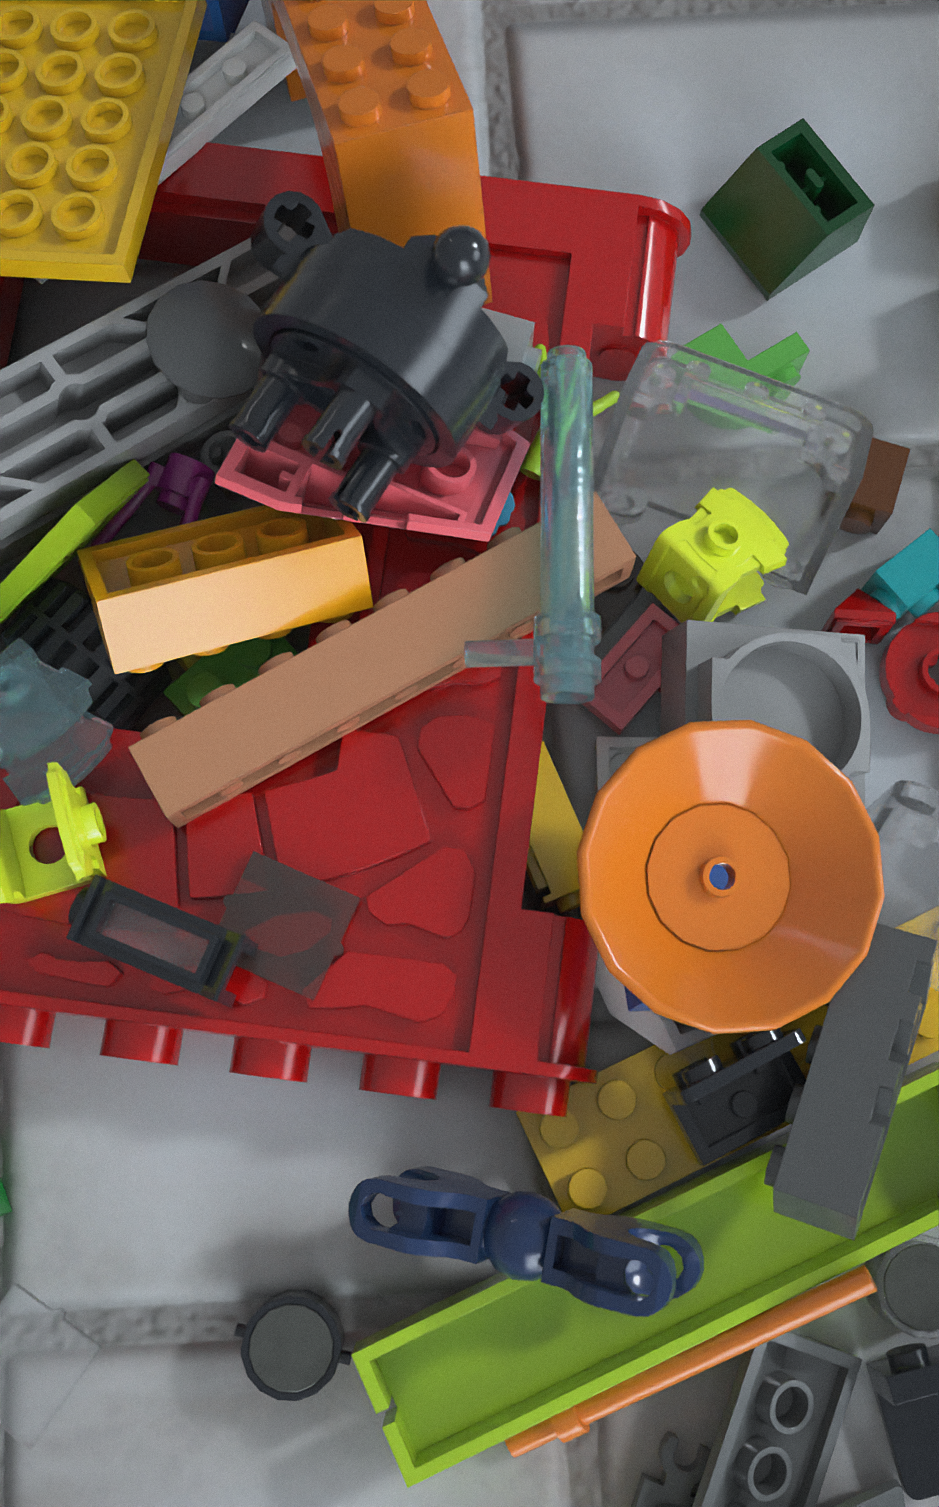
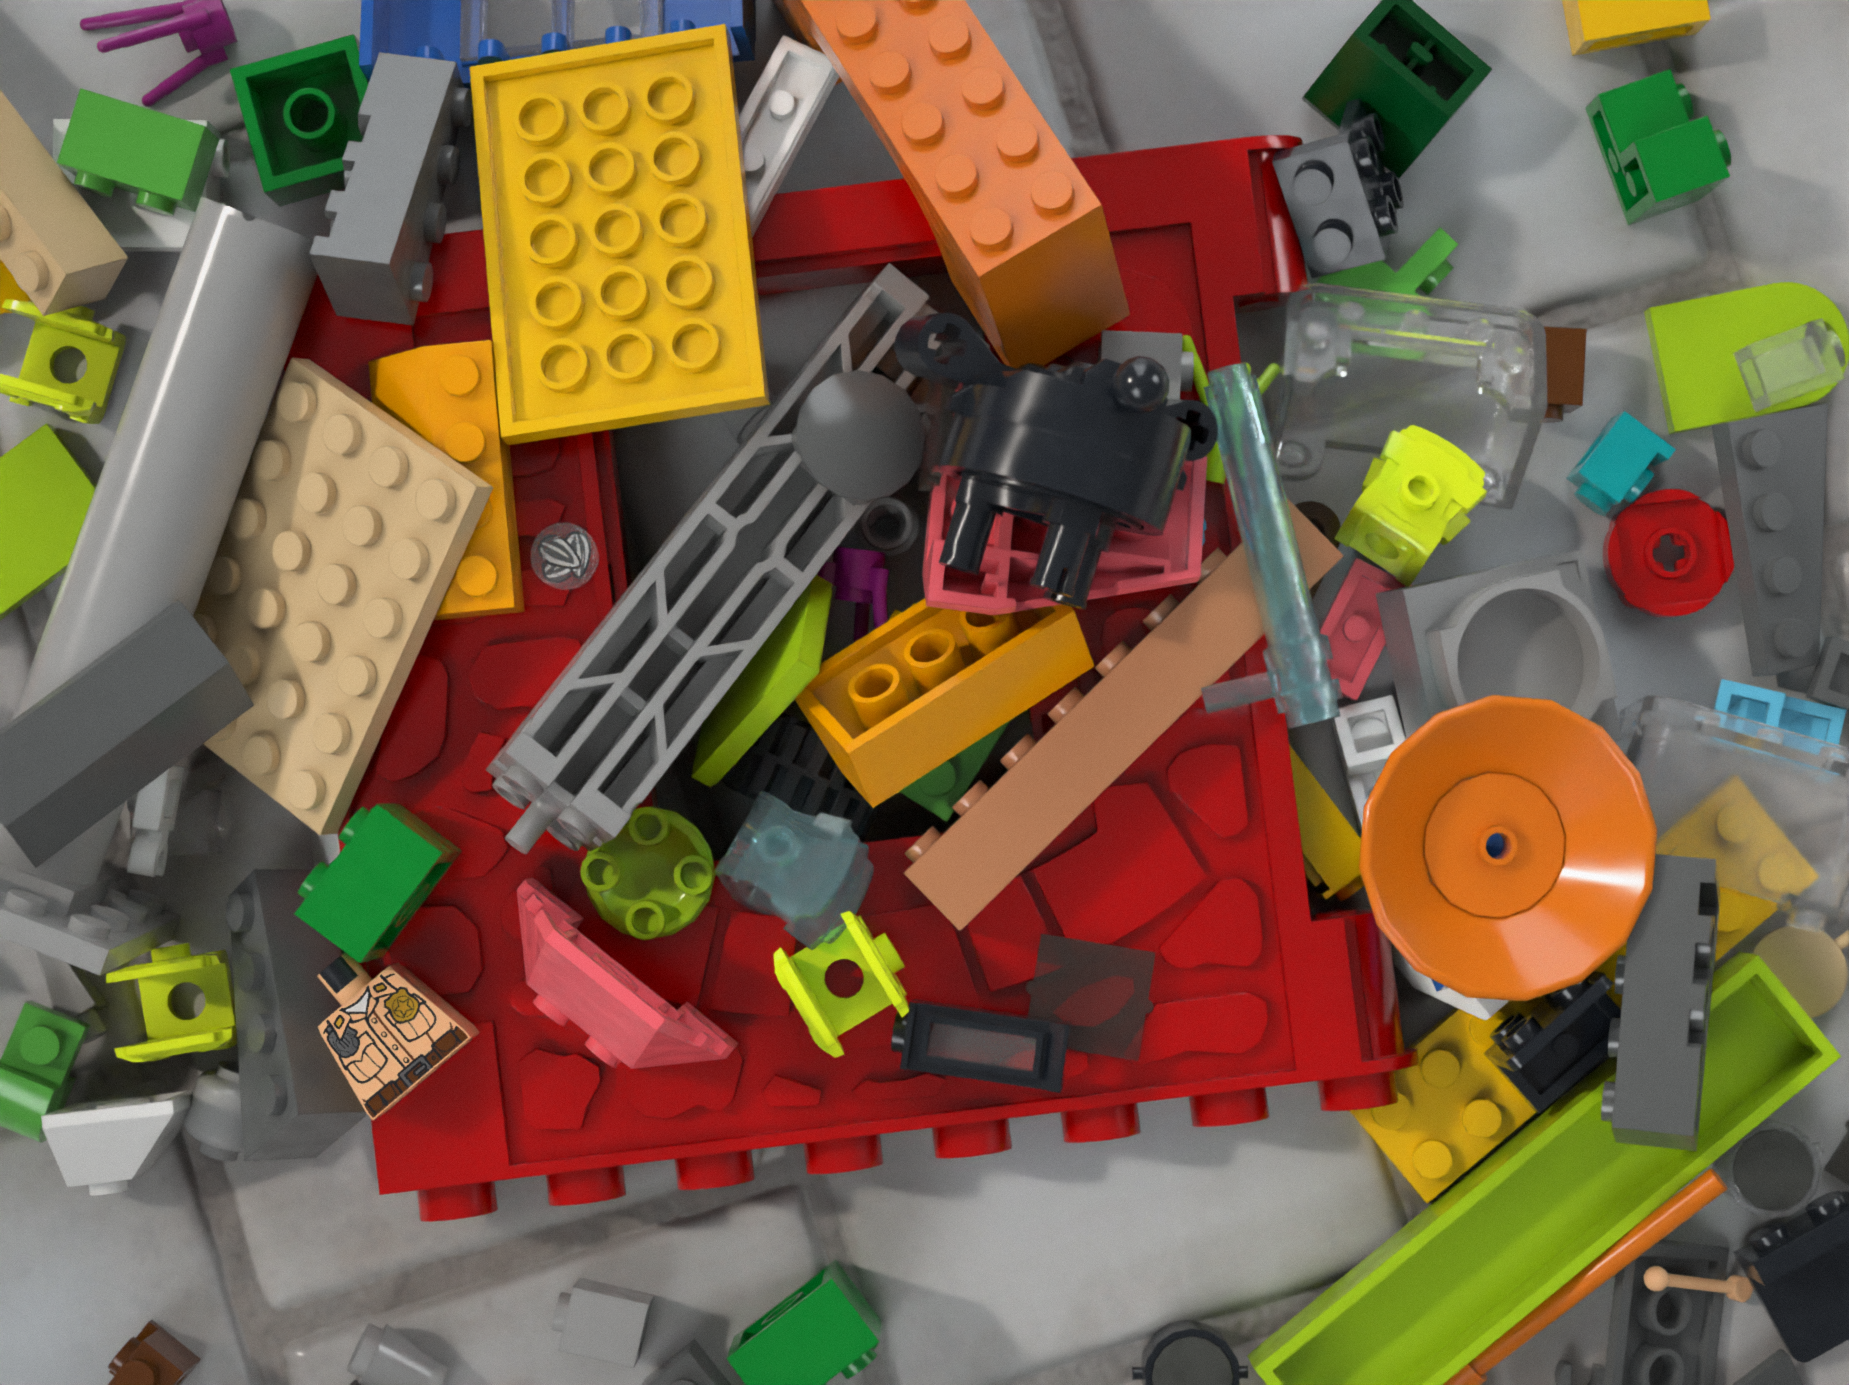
camera: 10 degrees left, 10 degrees up
(529, 1238) = (1393, 1224): dark blue piece -> none
(713, 273) = (1341, 194): none -> black bracket
(861, 616) = (1571, 518): red slope -> none
(861, 1400) = (1736, 1287): none -> light nougat hinge

